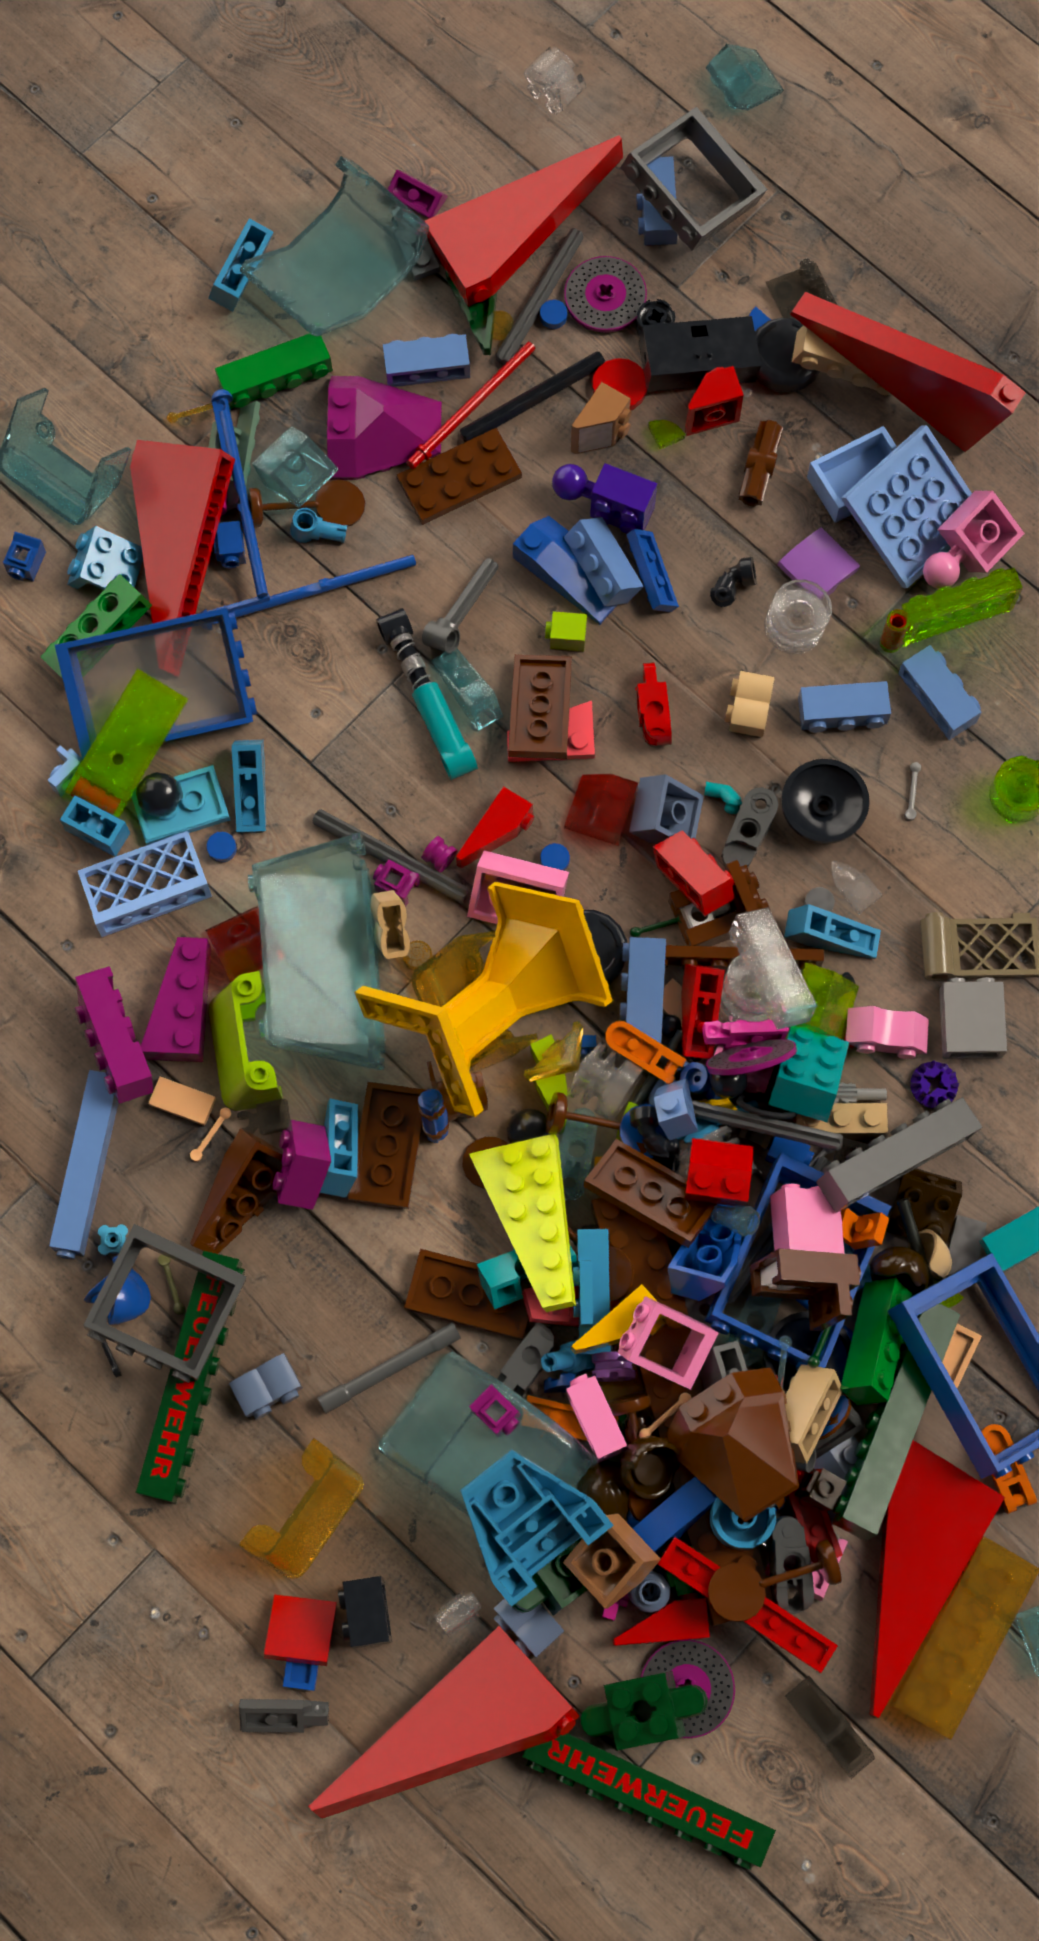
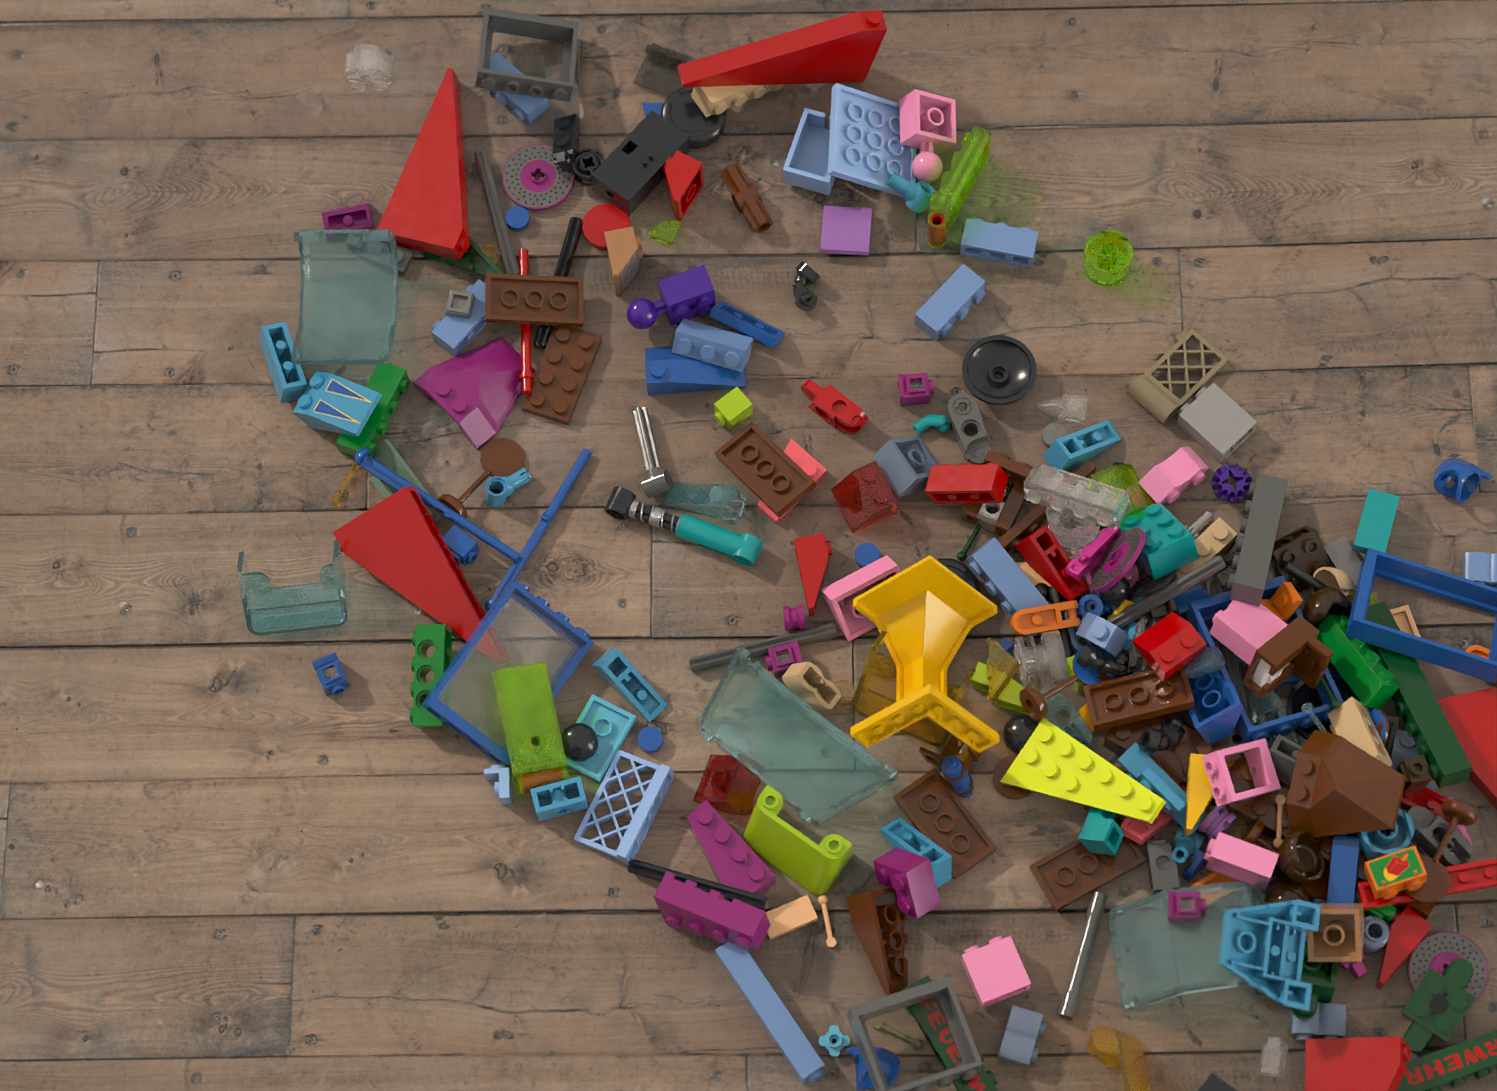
camera: 40 degrees left, 5 degrees down
(102, 558) = (386, 630): dark azure bracket -> none
(130, 1003) = (657, 873): none -> black axle
(244, 335) = (336, 404): none -> dark azure slope
(294, 467) = (454, 459): clear light blue slope -> none
(299, 1310) = (995, 971): none -> bright pink brick
(427, 340) = (459, 304): none -> flat silver tile
(492, 391) = (534, 300): none -> reddish brown plate
(648, 1250) = (1156, 740): none -> black arm
(656, 282) = (566, 140): none -> black hinge
(712, 1561) = (1395, 873): none -> brick
(738, 752) = (914, 389): none -> magenta window
(751, 703) = (891, 352): tan brick -> none
(798, 616) = (869, 260): clear wheel -> none
(906, 583) = (915, 194): none -> dark azure pin
(910, 813) = (1054, 333): light grey hinge -> none

